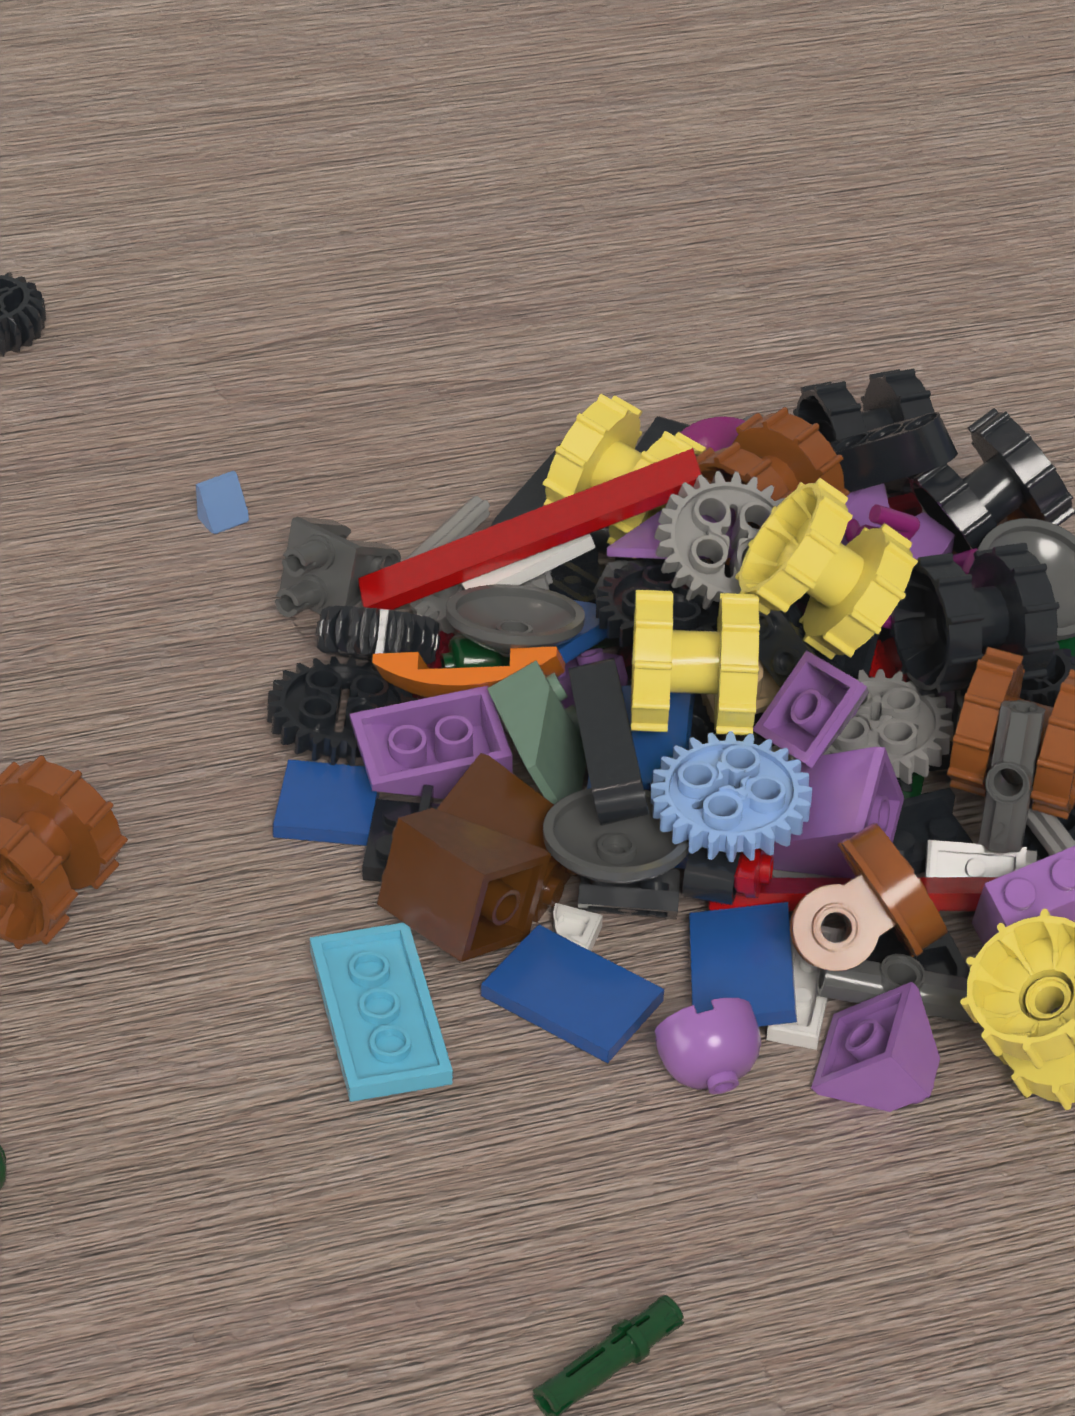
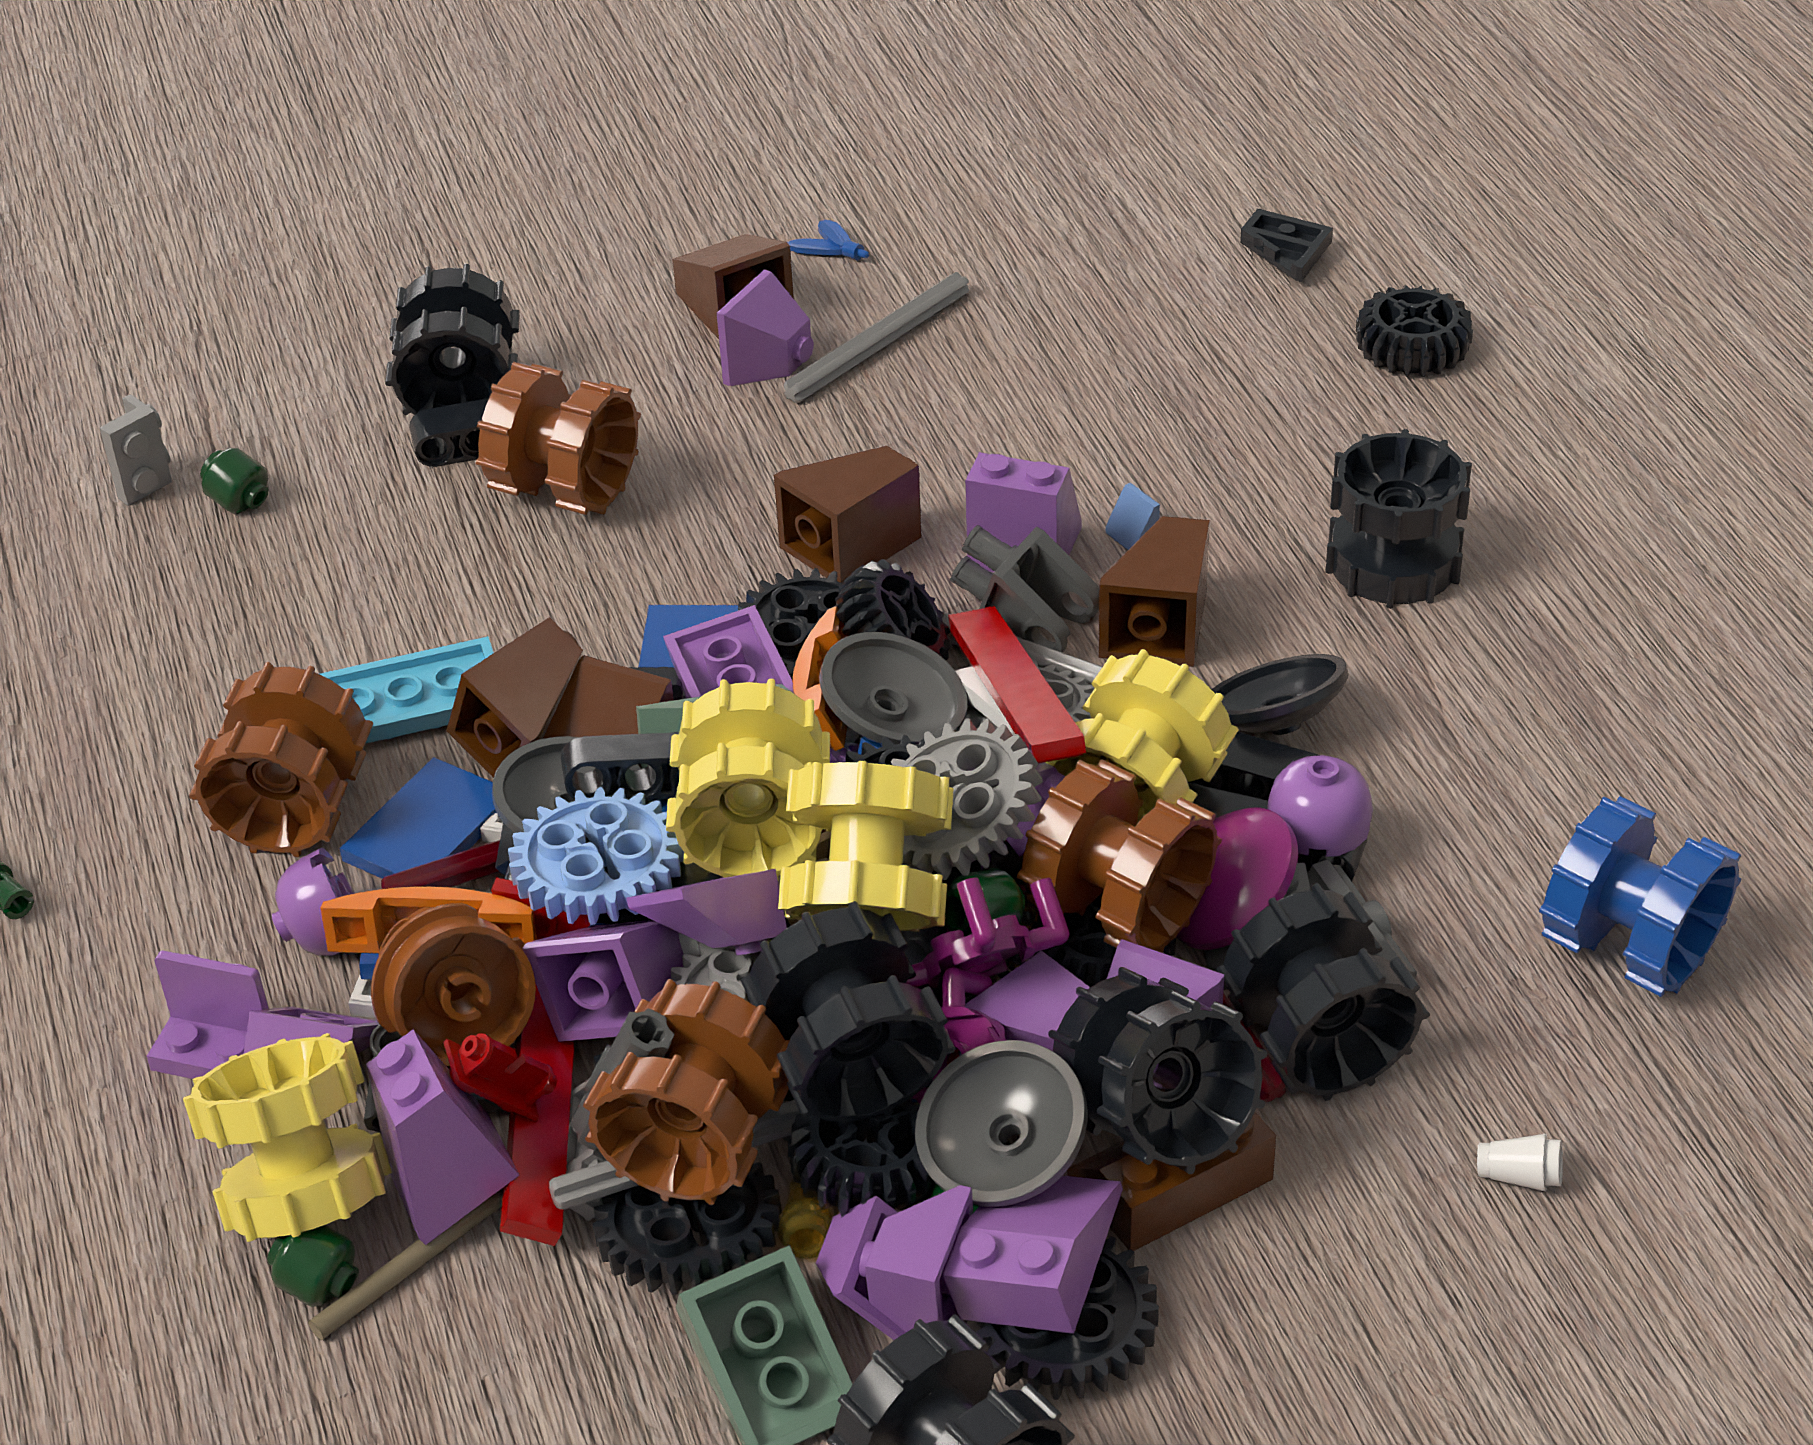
camera: 90 degrees right, 0 degrees up
(199, 661) = (849, 510): none -> reddish brown slope
(233, 553) = (1016, 496): none -> medium lavender slope
(300, 338) = (1397, 518): none -> black piece
(359, 477) = (1157, 593): none -> reddish brown slope
(494, 436) = (1282, 692): none -> black dish
(502, 1053) = (281, 760): none -> dark orange piece
(654, 961) = (448, 870): none -> dark red axle
(663, 407) = (1323, 804): none -> medium lavender cylinder
(766, 902) = (364, 919): none -> orange slope
(771, 285) = (1669, 908): none -> blue piece
(864, 1130) = (207, 1012): none -> medium lavender bracket
(894, 451) = (1176, 933): black beam -> none
(975, 867) = (486, 1069): none -> red hinge
(989, 391) = (1522, 1161): none -> white cone

